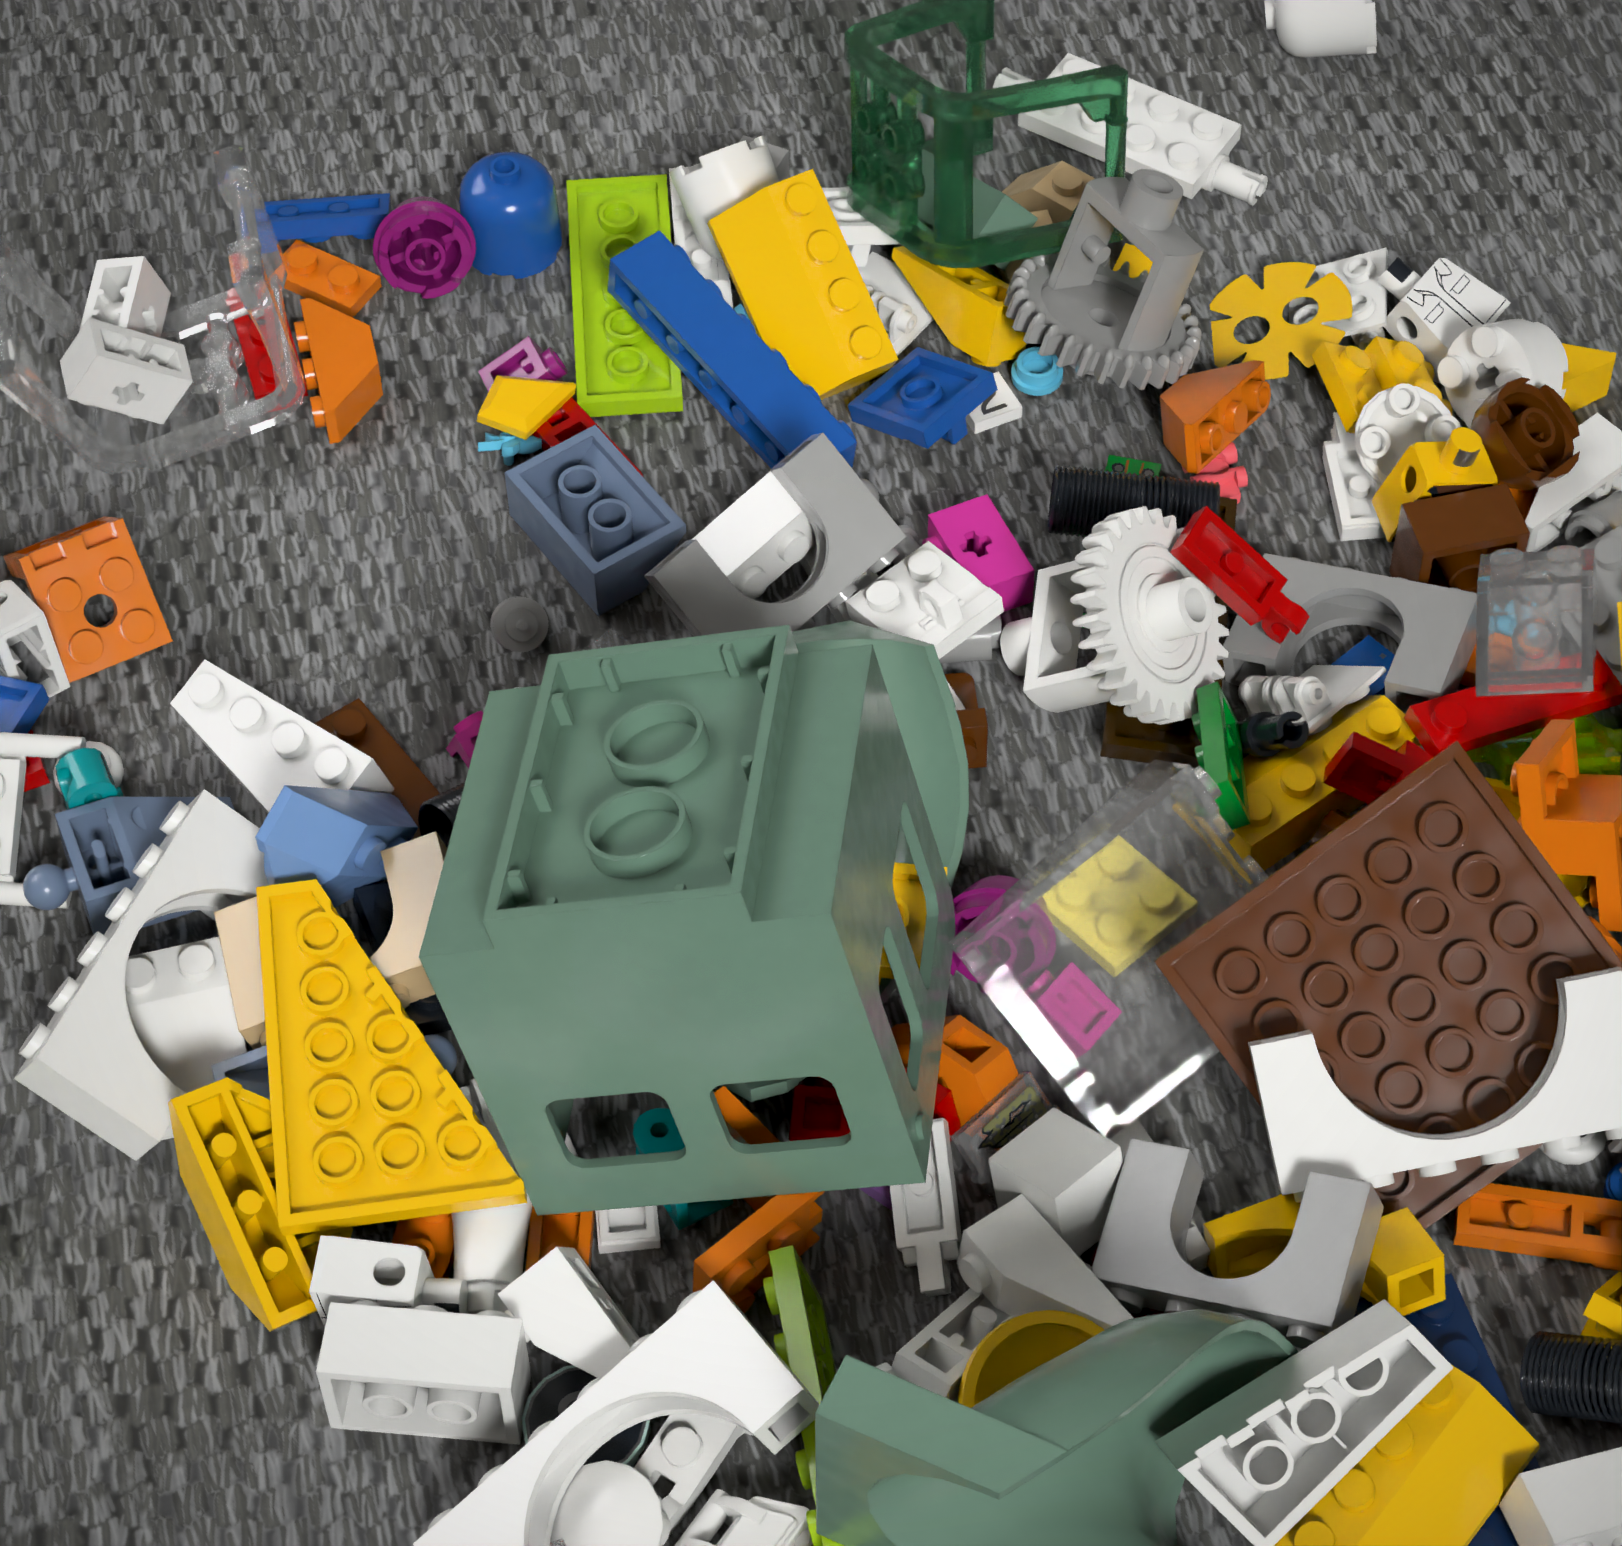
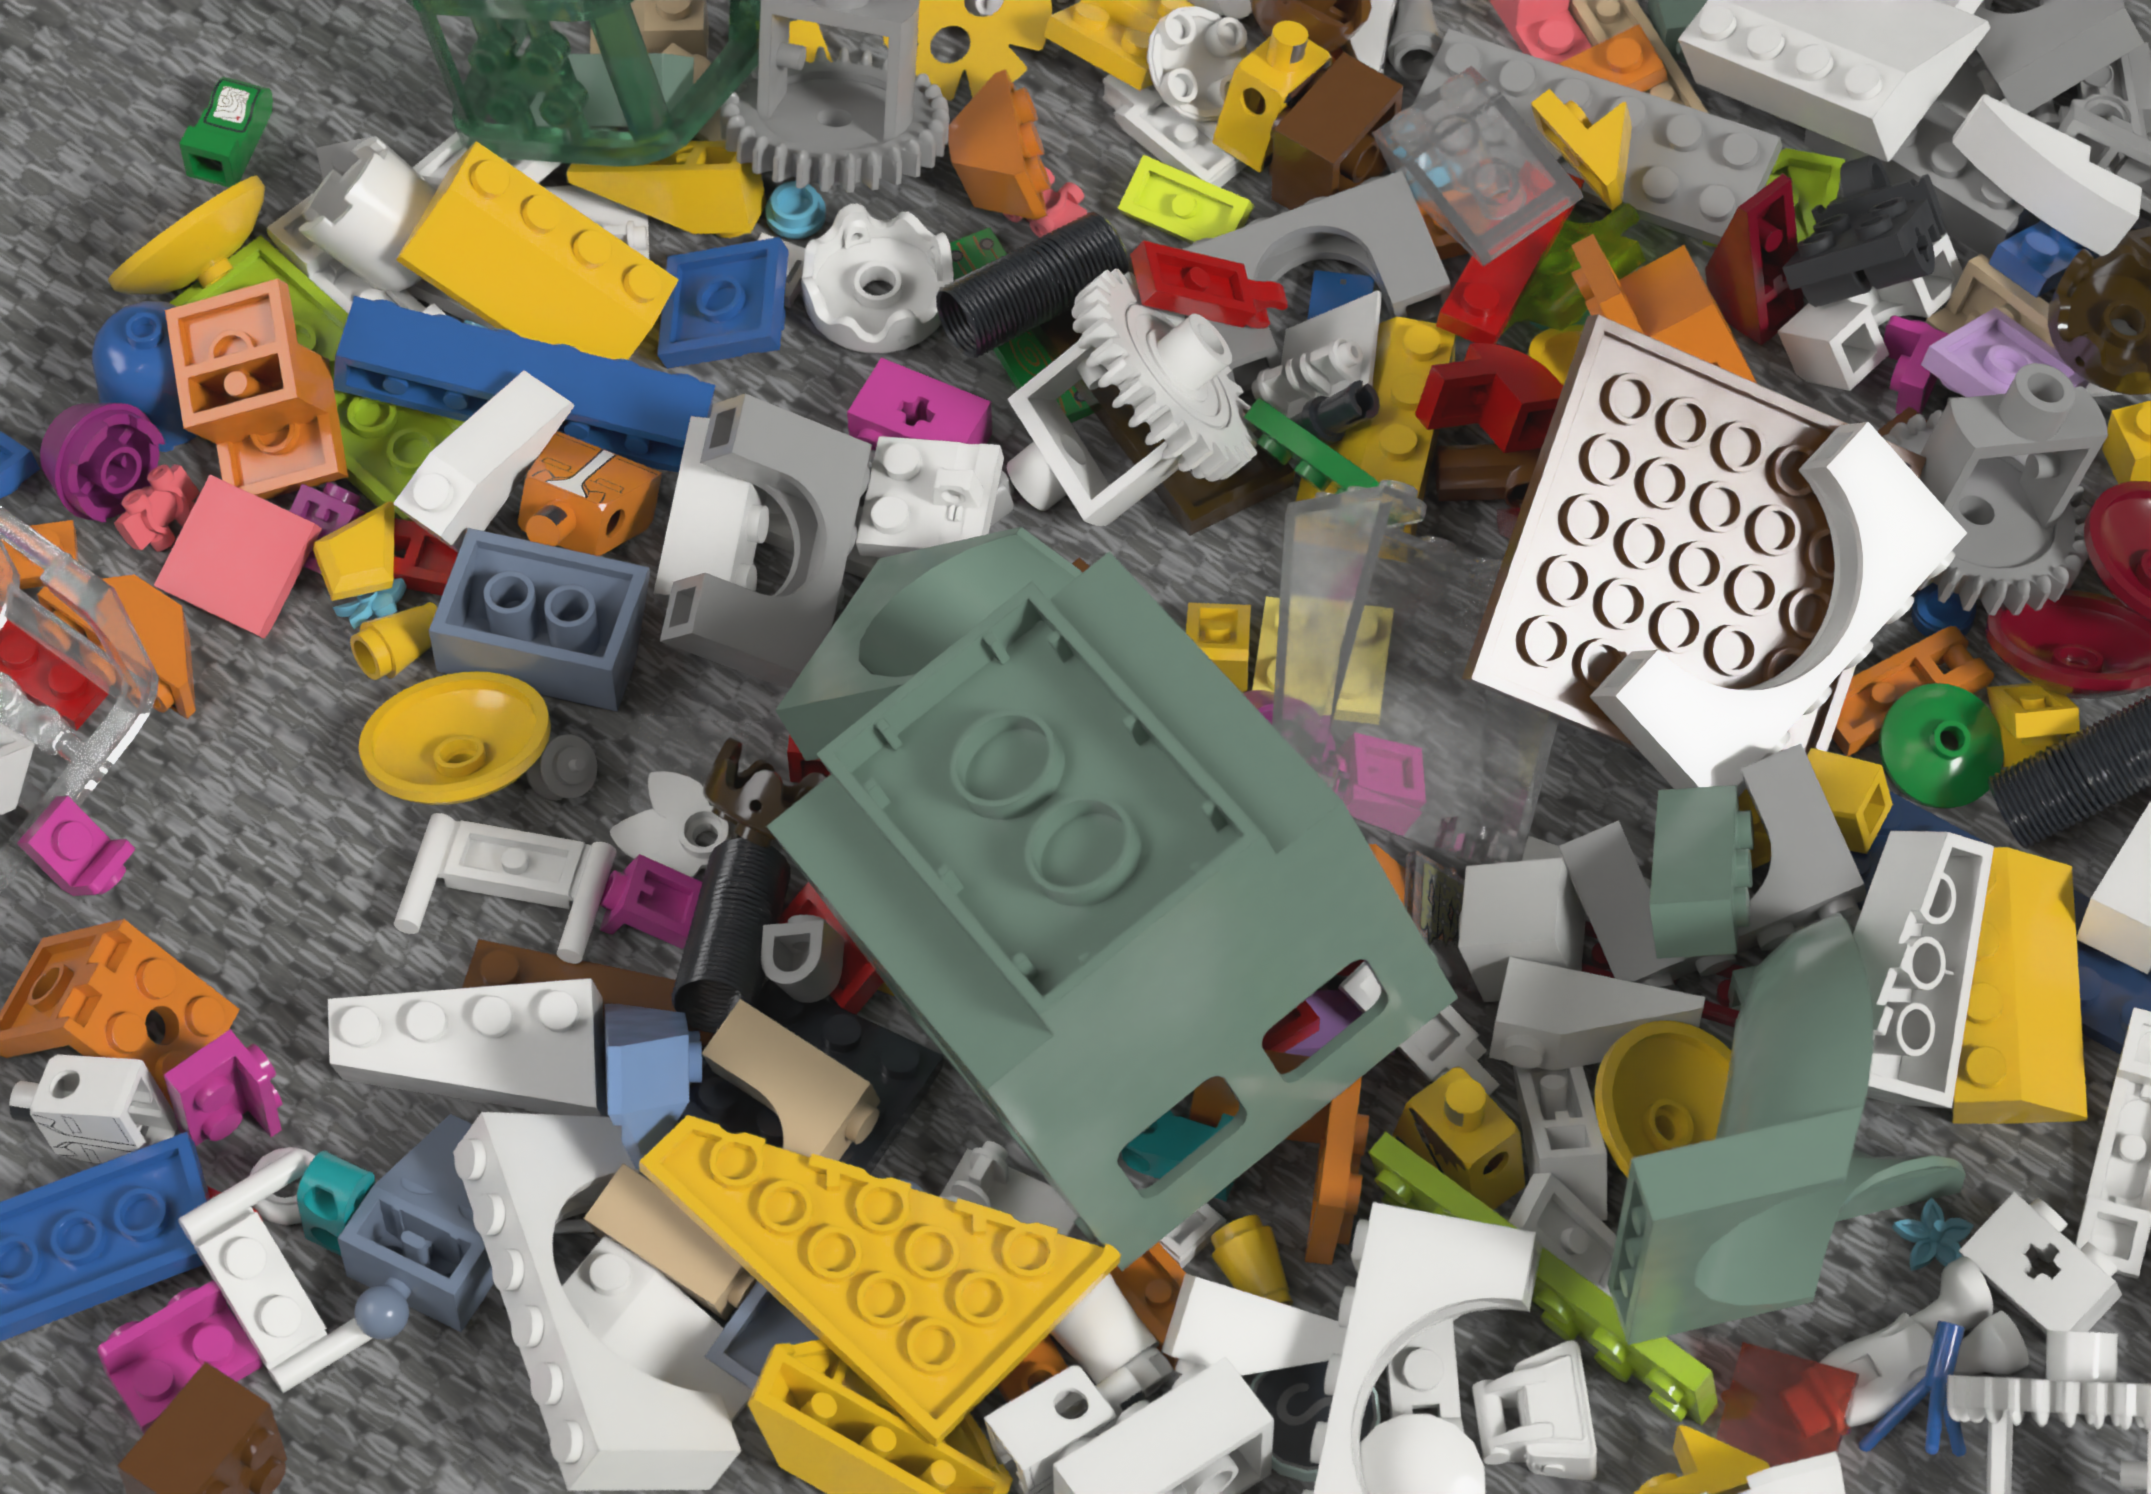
camera: 40 degrees left, 5 degrees up
(91, 675) = (221, 1085): none -> dark pink bracket
(171, 471) = (75, 849): none -> dark pink bracket
(422, 663) = (511, 867): none -> white plate
(429, 300) = (155, 506): none -> coral piece
(451, 360) = (237, 556): none -> coral tile
(462, 556) = (454, 738): none -> yellow dish
(486, 474) = (393, 641): none -> yellow cone
(544, 255) = (256, 390): none -> orange bracket
(607, 142) = (195, 245): none -> yellow dish
(643, 387) = (483, 460): none -> white slope
(646, 1282) = (1251, 1259): none -> yellow cone
(698, 458) = (586, 497): none -> orange torso
(712, 101) = (227, 131): none -> green leg
(871, 1299) = (1460, 1133): none -> yellow torso
(1030, 834) = (1223, 636): none -> yellow slope
(1034, 423) = (870, 250): none -> white plate
(1208, 1226) = (1700, 871): none -> sand green brick
(1311, 527) = (1182, 203): none -> neon yellow plate
(1500, 1287) = (1919, 761): none -> green dish

